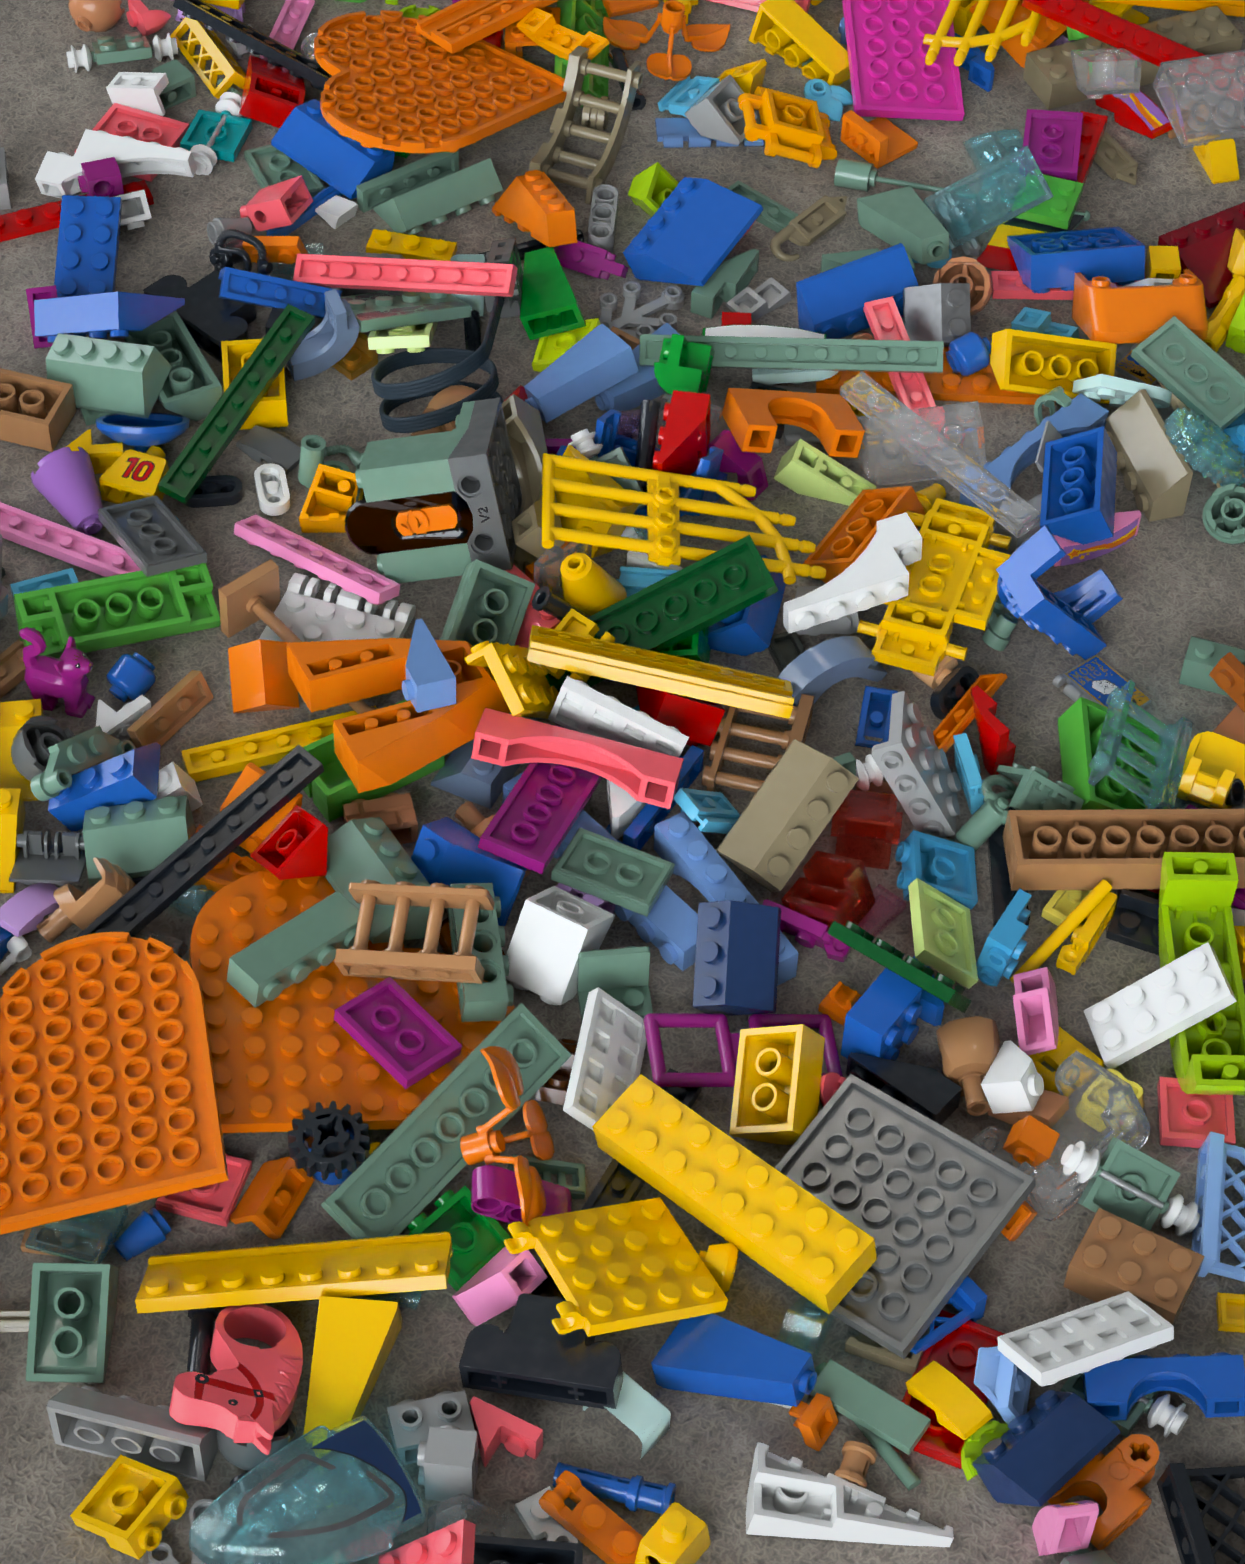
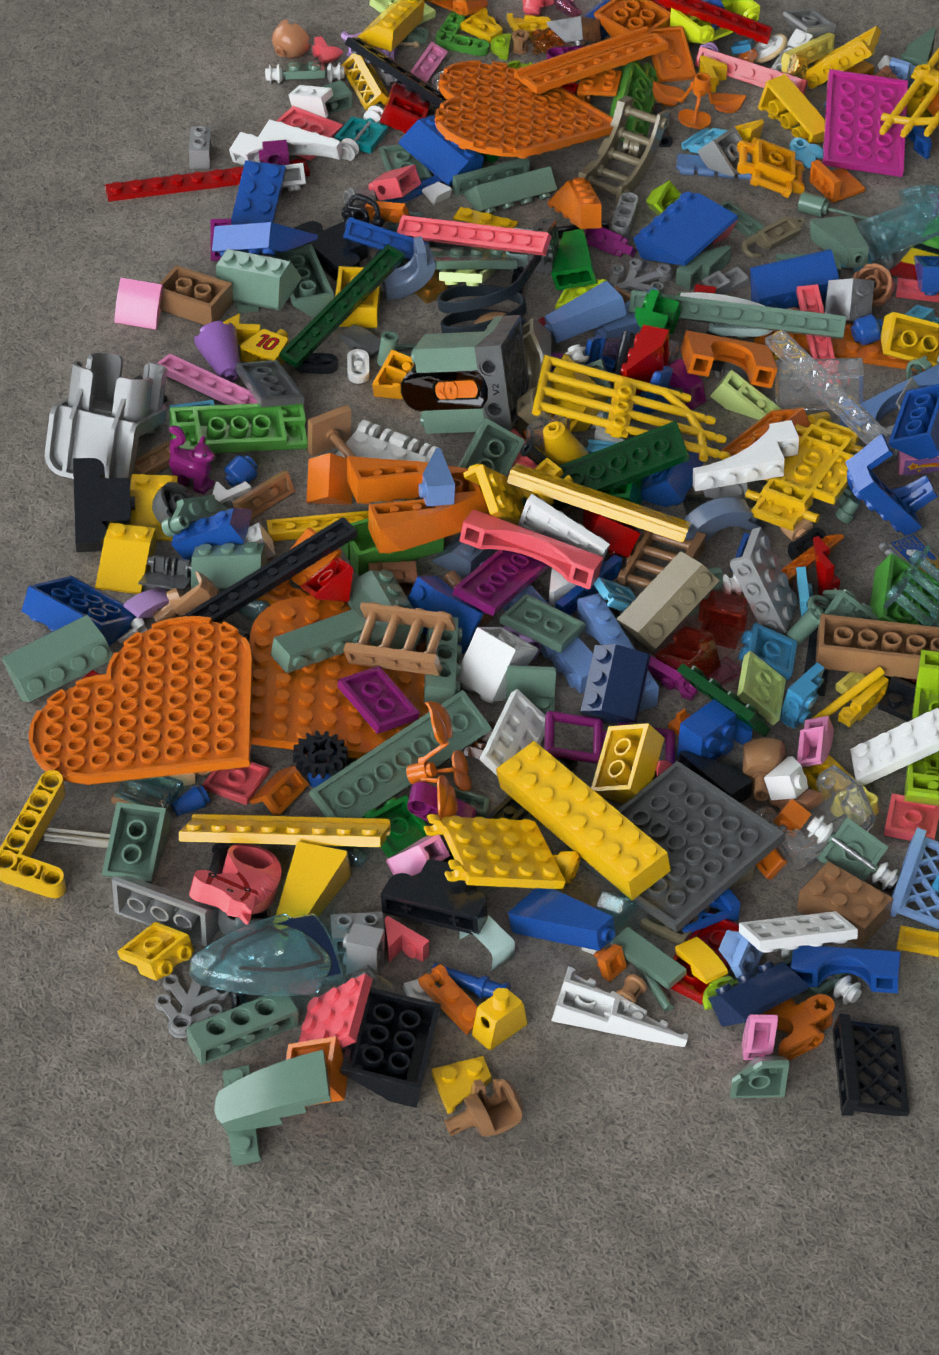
camera: 10 degrees right, 5 degrees down
(143, 432) = (275, 319): blue dish -> none
(317, 559) = (380, 412): bright pink plate -> none
(556, 38) = (609, 88): light orange slope -> none

